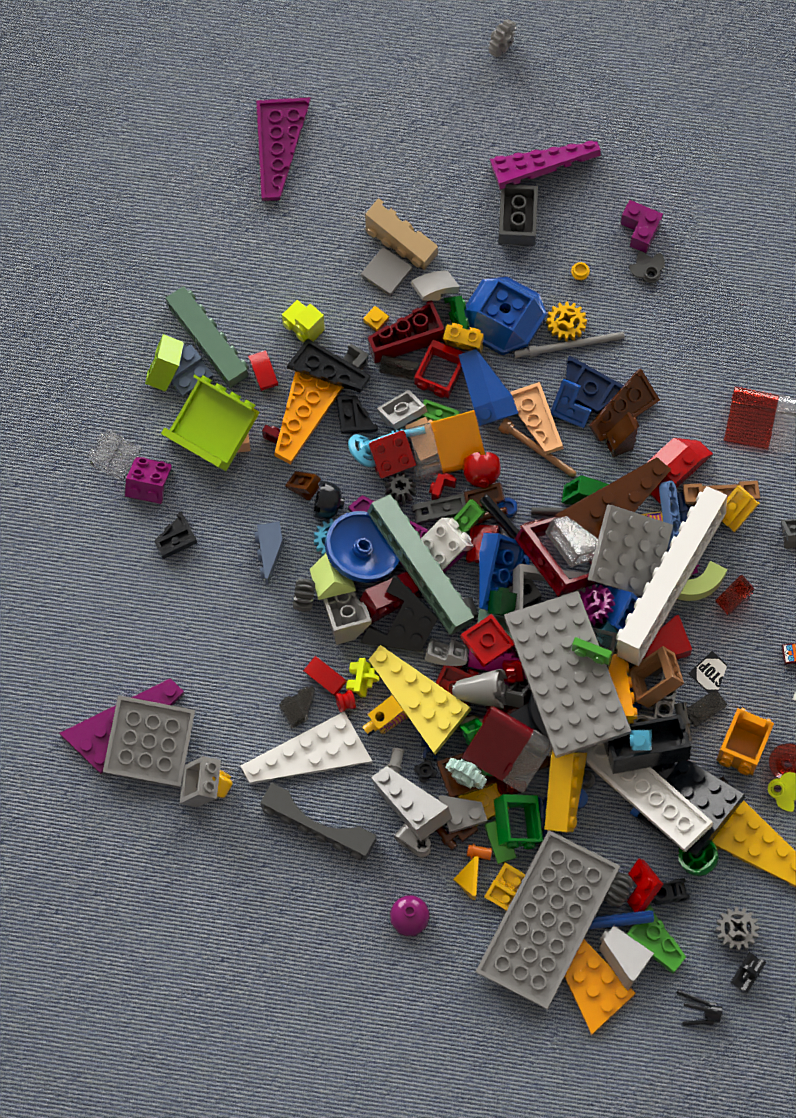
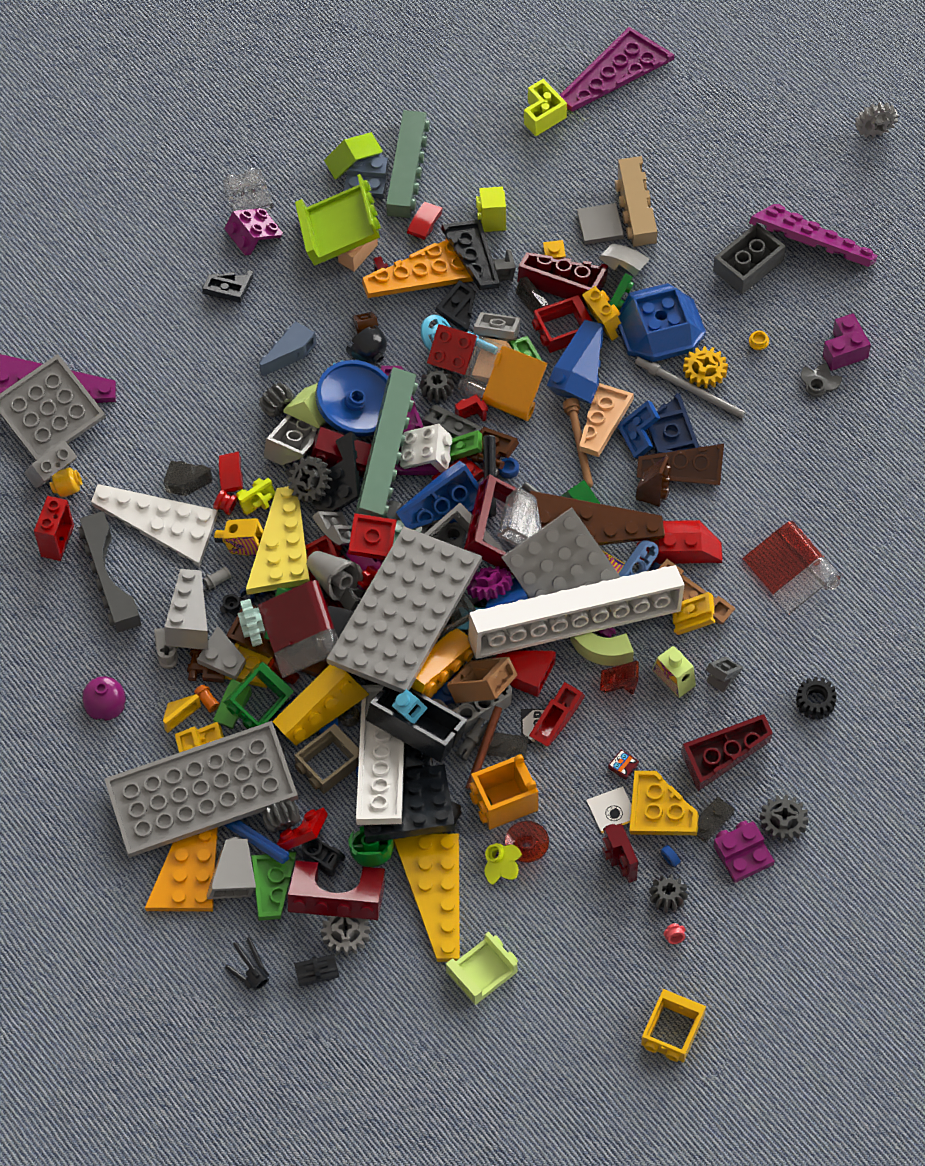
camera: 45 degrees right, 10 degrees down
(252, 825) = (54, 523): none -> red window
(264, 211) = (546, 108): none -> neon yellow brick
(399, 638) = (310, 479): none -> dark grey gear
(482, 469) = (514, 418): red cylinder -> none
(501, 601) = (418, 520): dark green brick -> none
(598, 654) = (433, 596): bright green plate -> none
(609, 802) = (340, 739): none -> dark tan window
(698, 723) = (485, 743): none -> copper bar
(698, 929) = (358, 903): none -> dark red arch
(719, 657) = (557, 714): none -> red slope
(763, 559) = (672, 668): none -> yellowish green torso

